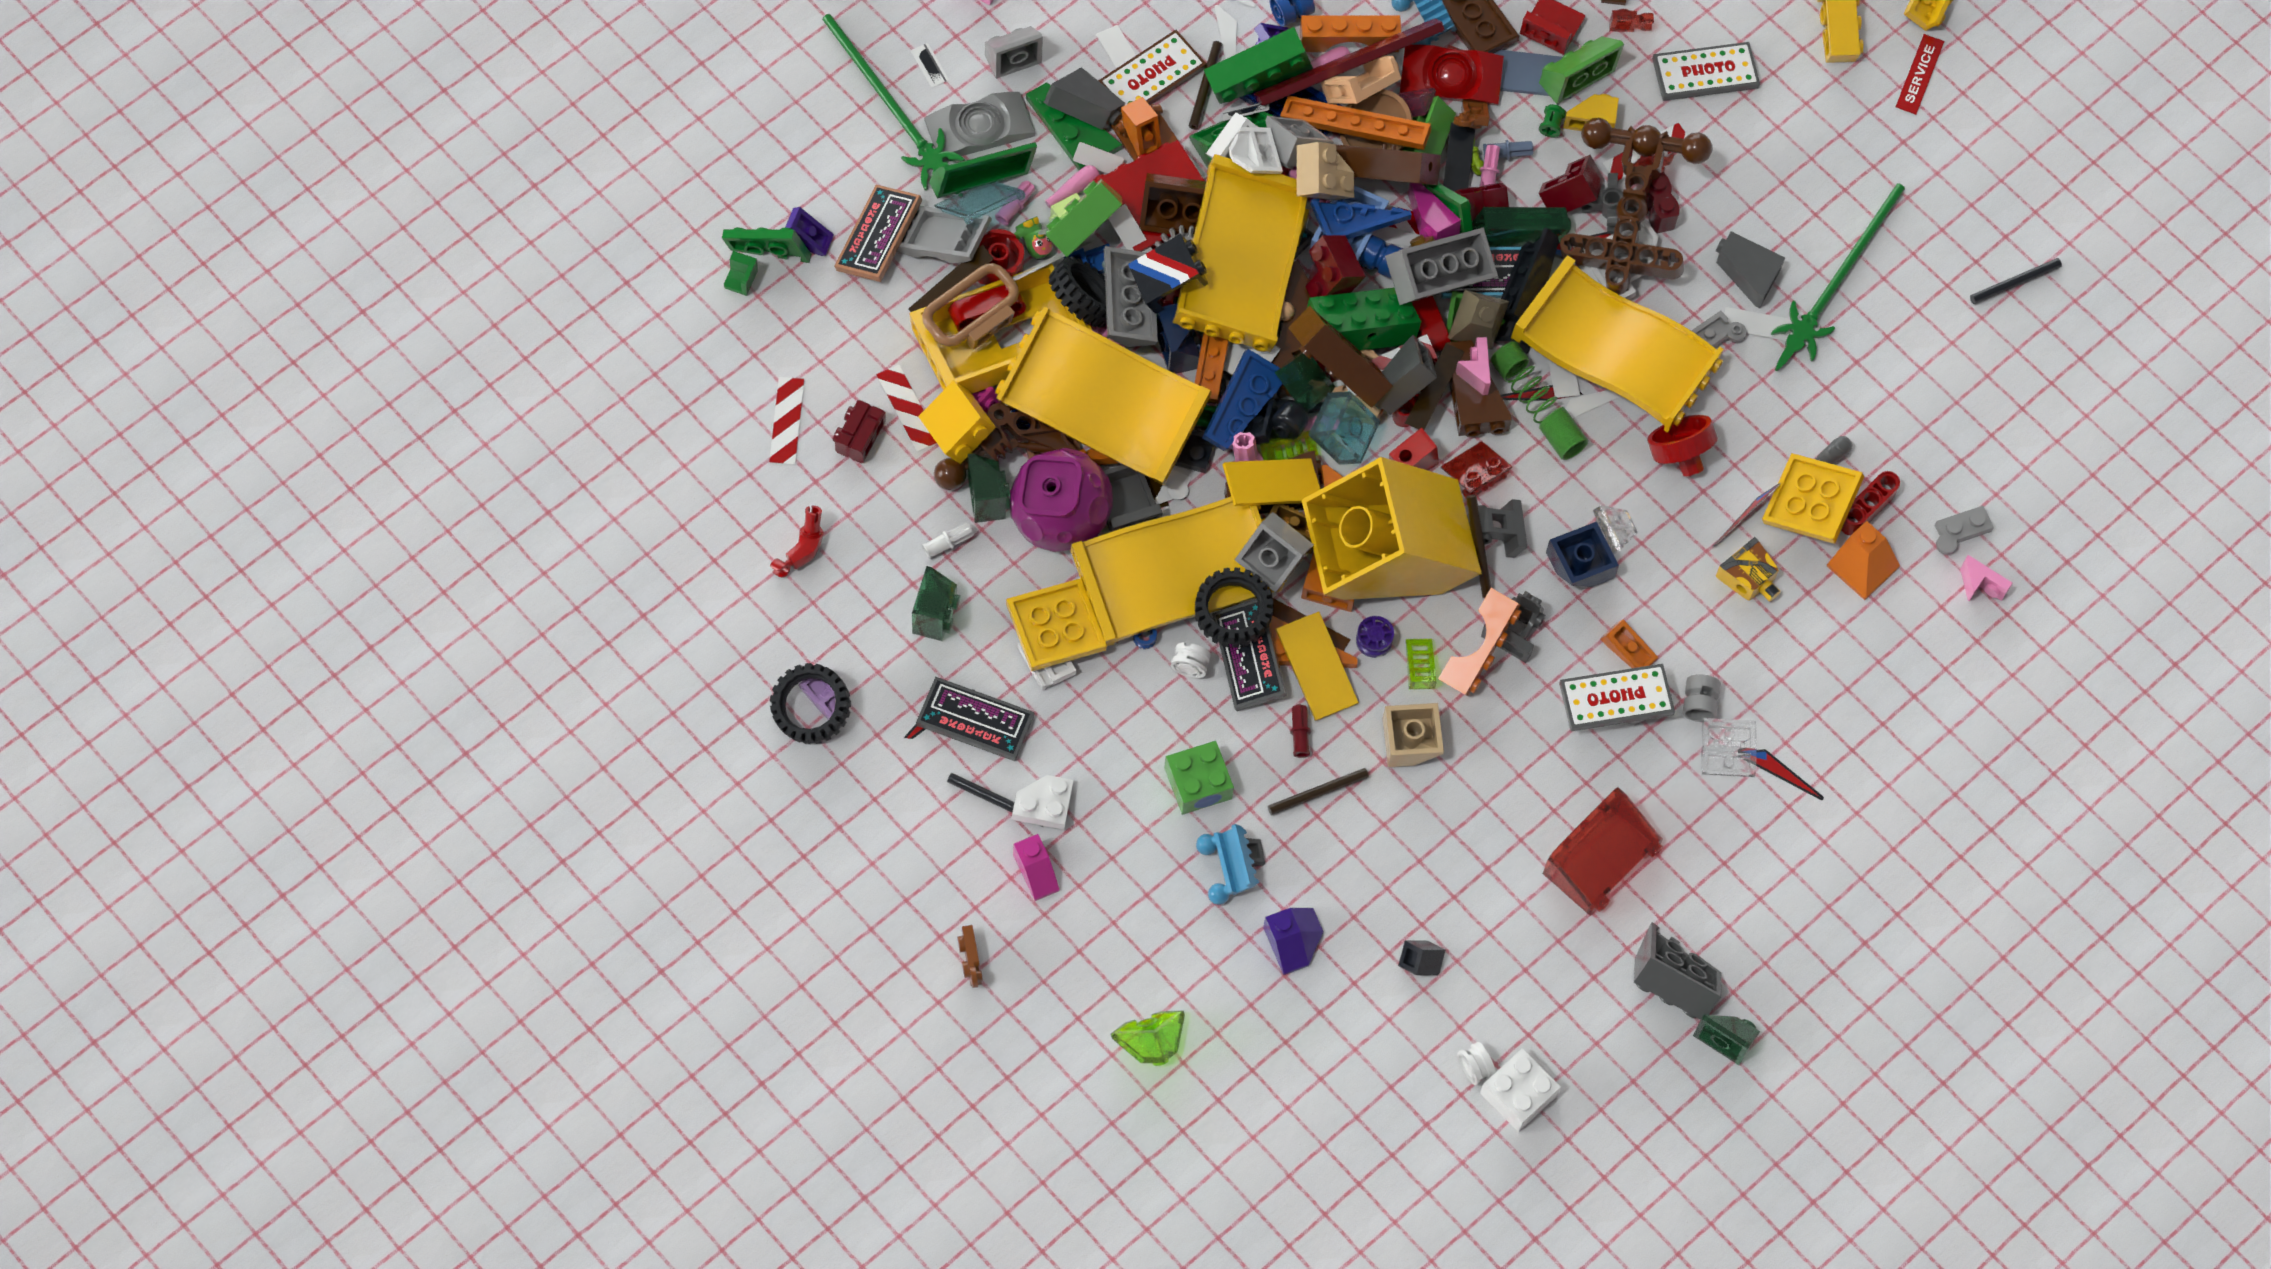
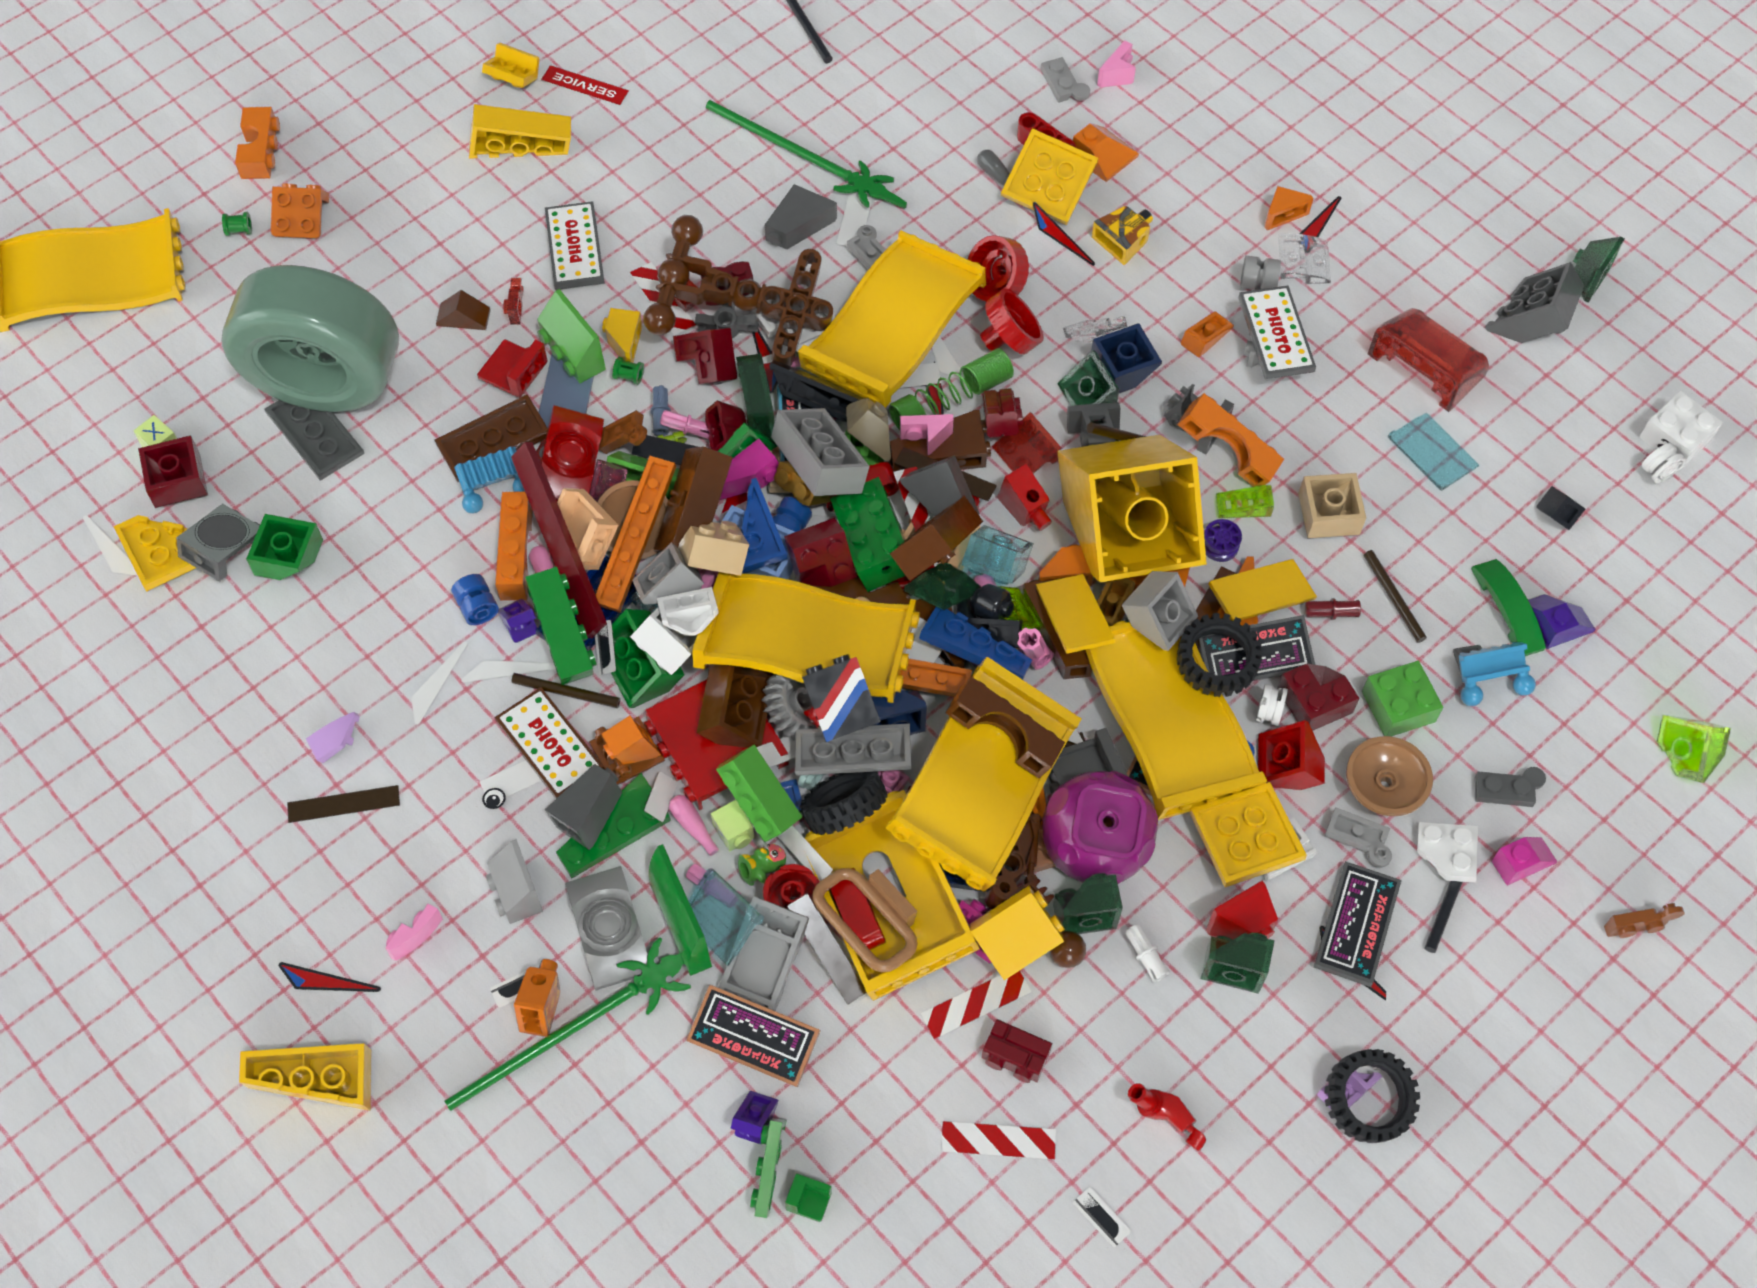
camera: 85 degrees left, 5 degrees down
(719, 495) = (1102, 1217): none -> sticker
(912, 71) = (538, 999): none -> orange torso
(977, 617) = (1245, 913): none -> red slope
(1060, 729) = (1360, 834): none -> light grey hinge
(1100, 35) = (493, 798): none -> black sticker
(1109, 868) = (1509, 788): none -> dark grey hinge
(1118, 737) = (1397, 764): none -> medium nougat dish
(1128, 436) = (1034, 745): none -> reddish brown arch
(1135, 674) = (1291, 757): none -> red slope
(1203, 703) = (1318, 694): none -> dark red slope
(1309, 892) = (1512, 604): none -> green slope
(1491, 850) = (1433, 451): none -> clear light blue piece
(1509, 439) = (1002, 412): none -> dark red brick
(1548, 524) = (1089, 382): none -> clear green slope
(1606, 446) = (1011, 323): none -> red piece
(1794, 732) = (1287, 207): none -> orange slope

